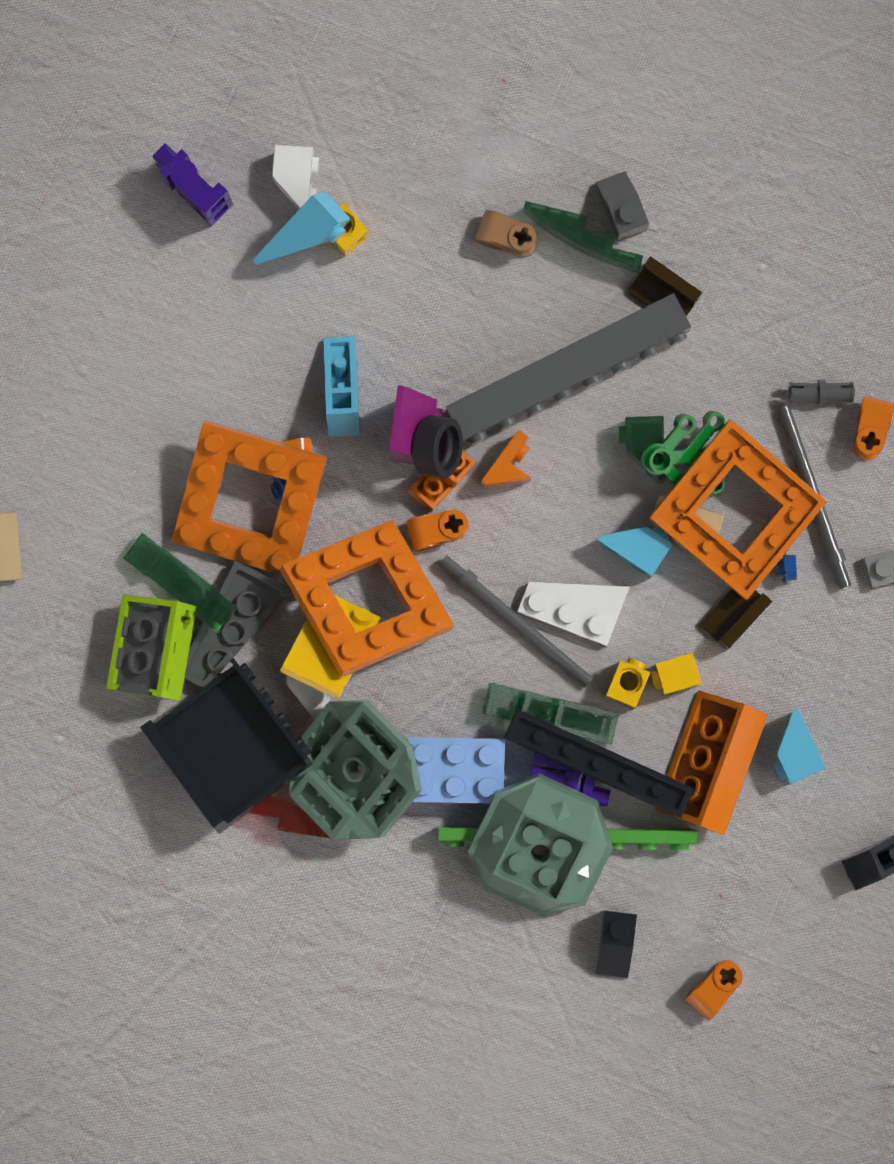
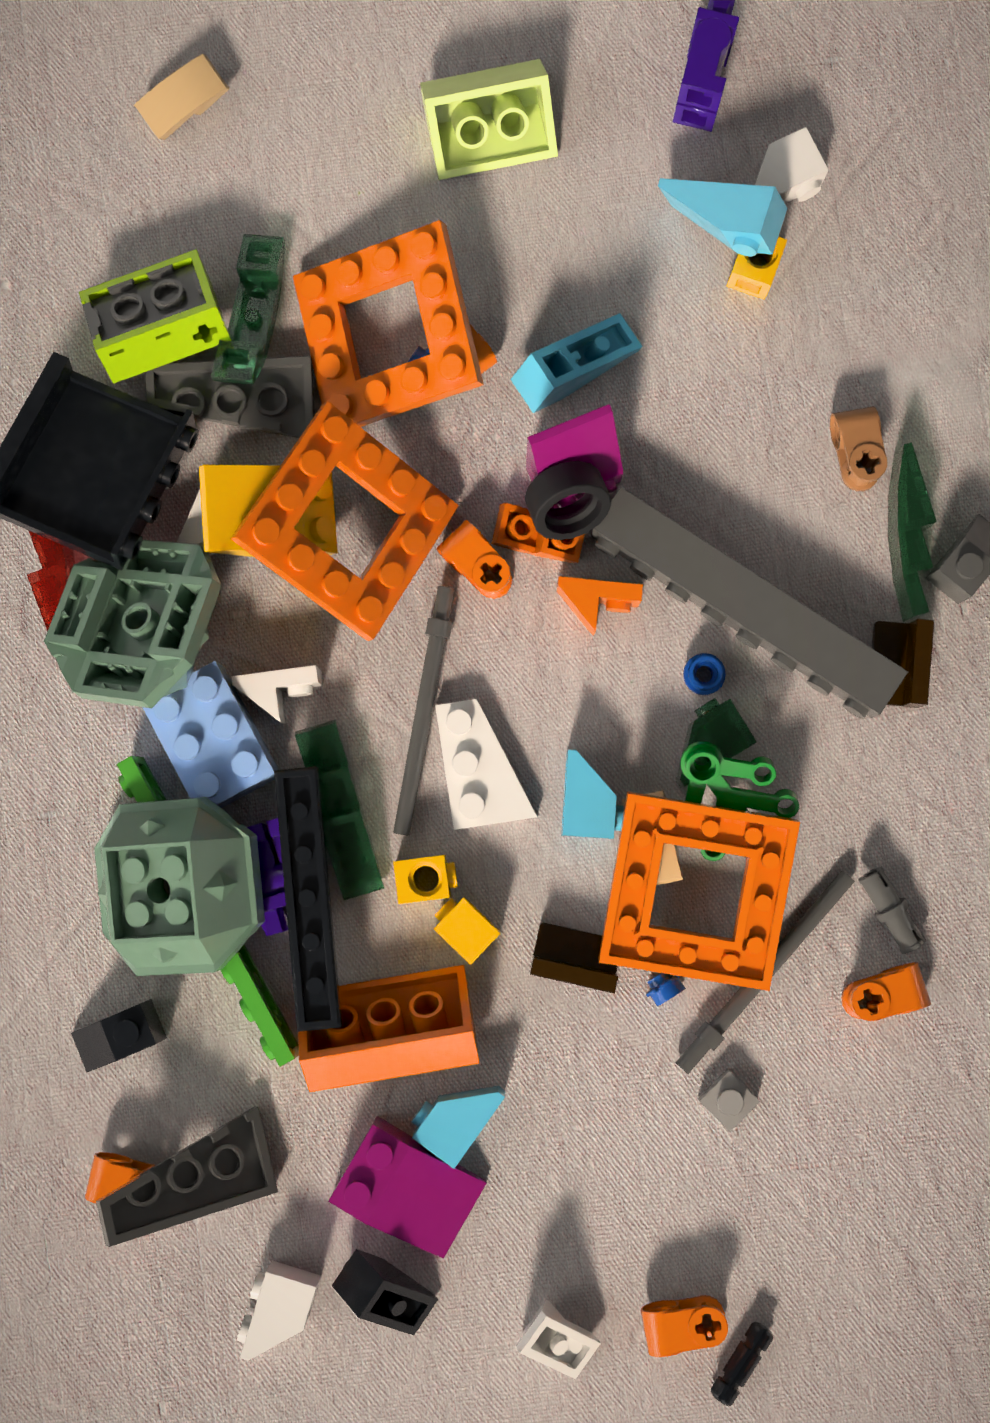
camera: 60 degrees right, 0 degrees up
(141, 348) = (490, 119): none -> yellowish green slope
(442, 716) = (267, 687): none -> white slope
(602, 414) = (715, 667): none -> blue plate
(740, 934) = (201, 1179): none -> dark grey wing
(822, 808) = (406, 1190): none -> magenta slope
(852, 933) = (281, 1308): none -> white slope

